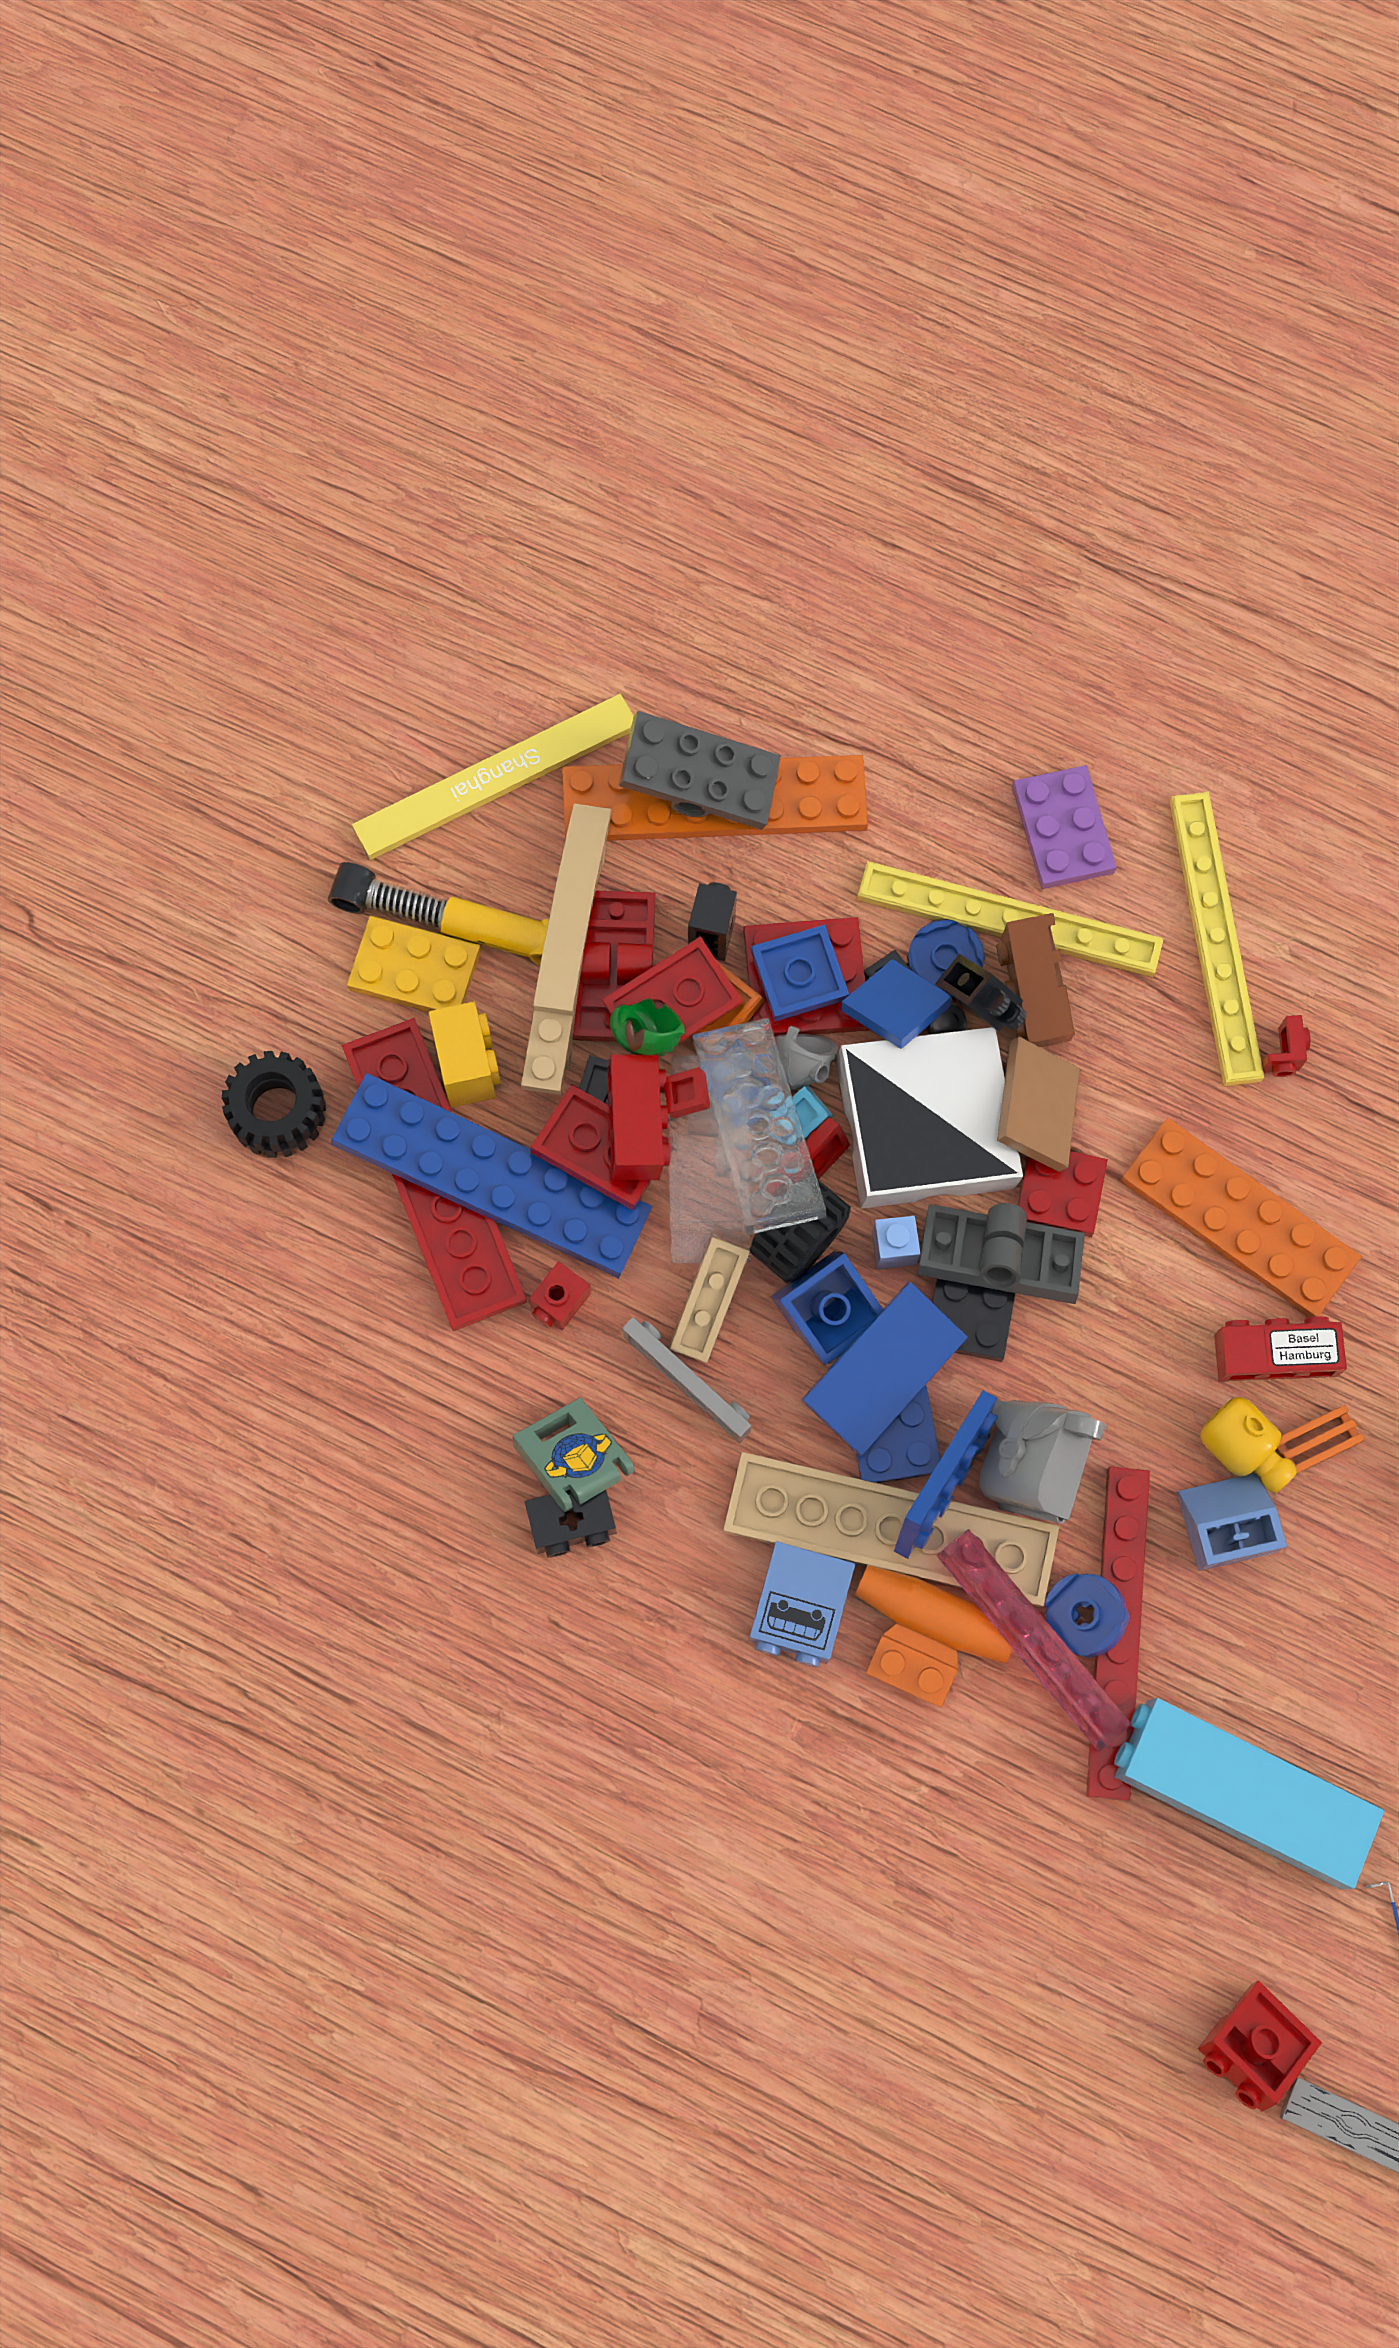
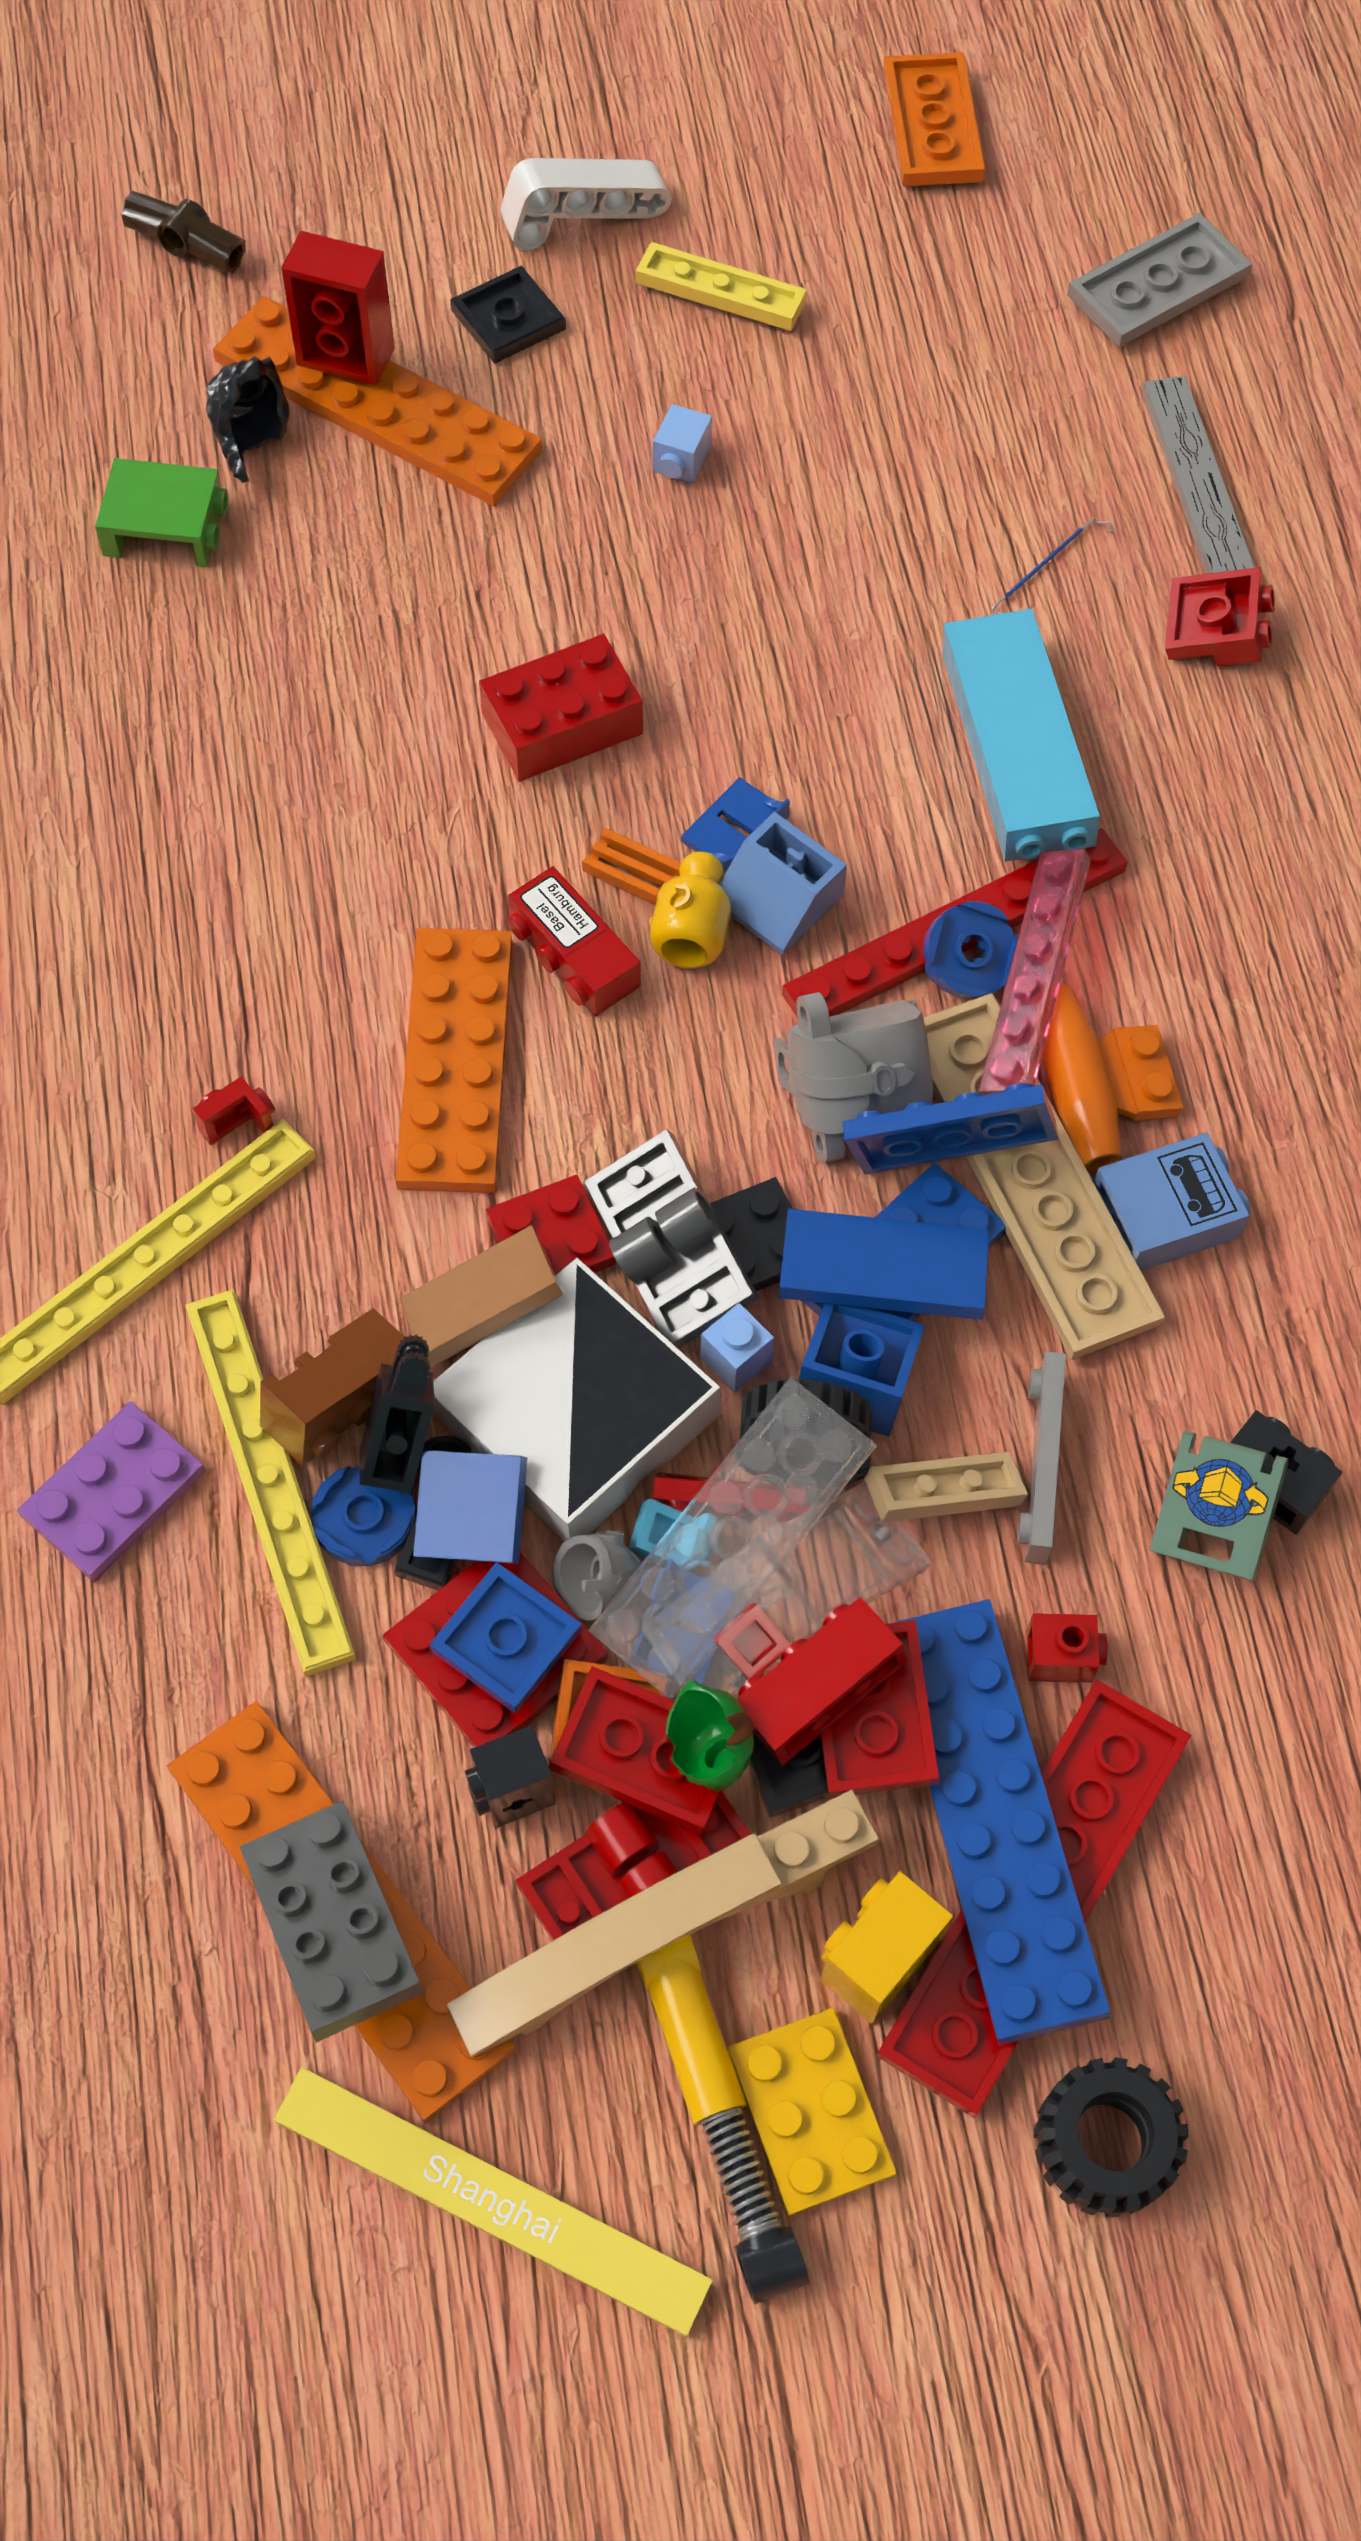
camera: 125 degrees left, 10 degrees down
(1316, 1554) = (742, 806): none -> blue piece

